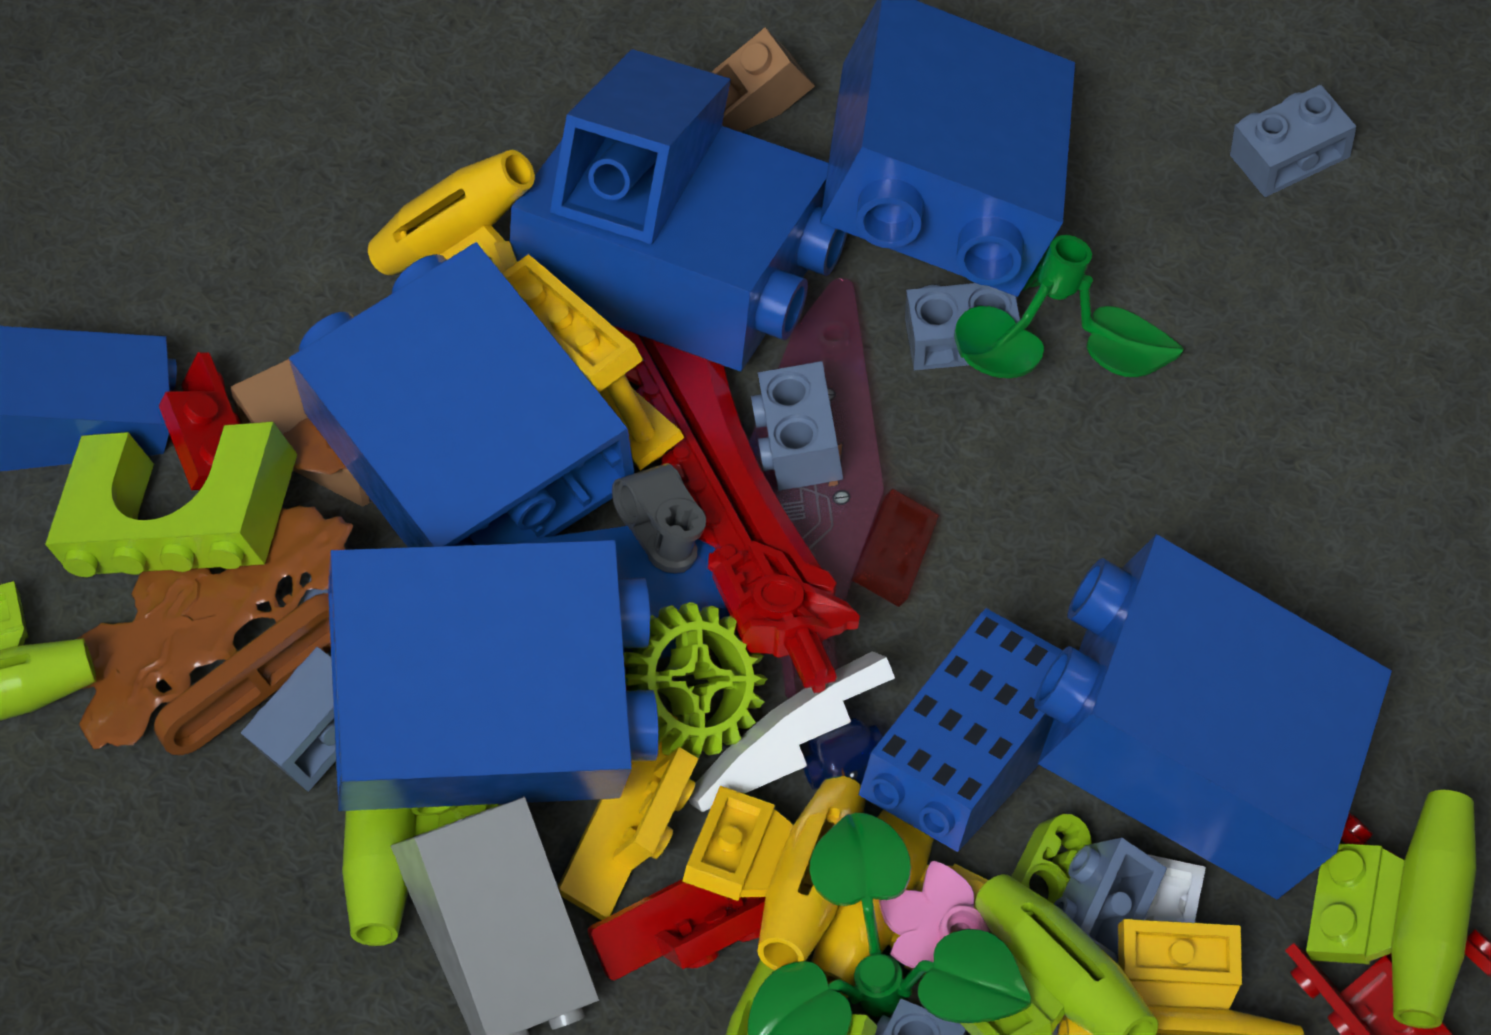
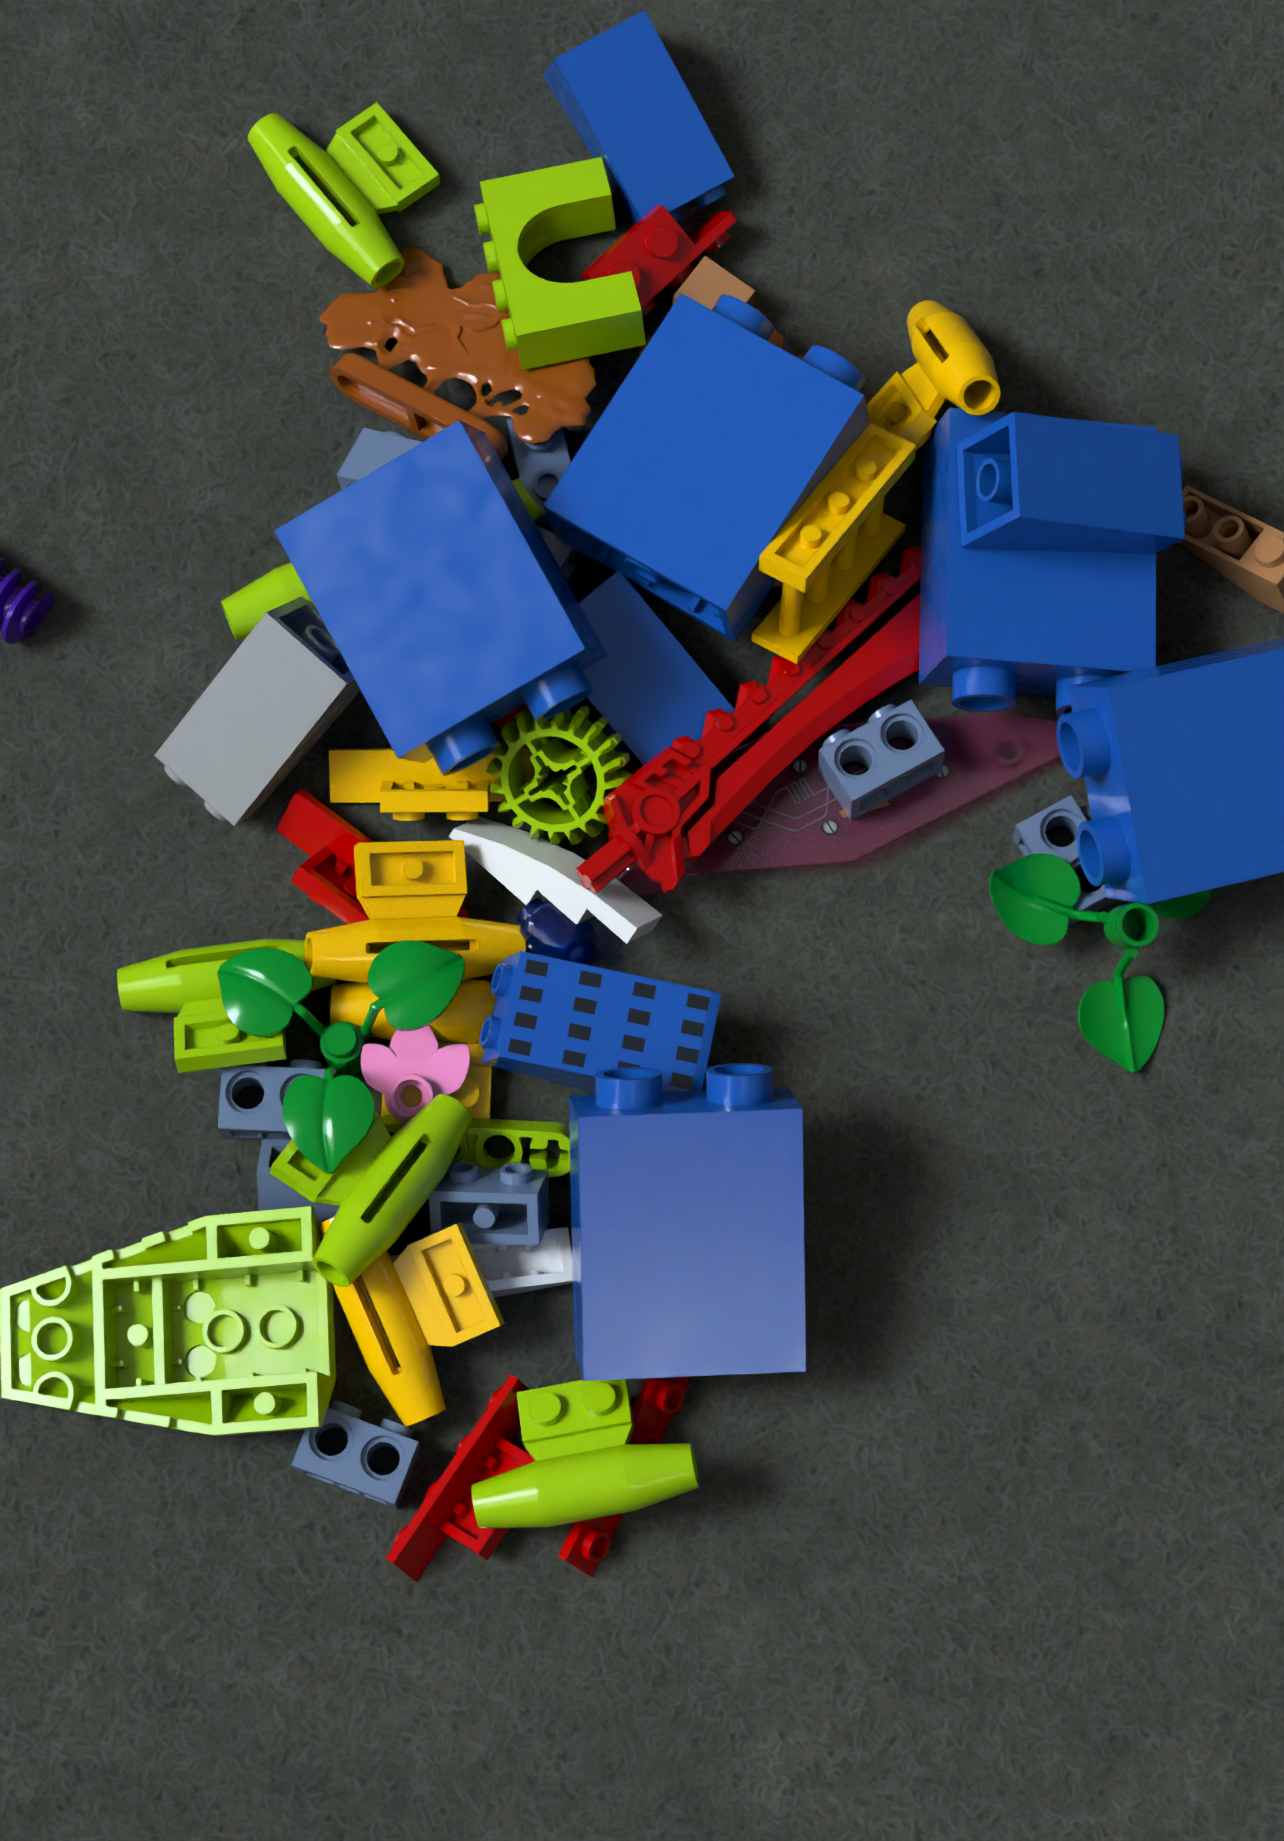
camera: 70 degrees right, 20 degrees up
(661, 516) = (706, 672): dark grey piece -> none
(895, 547) = (797, 894): clear red plate -> none

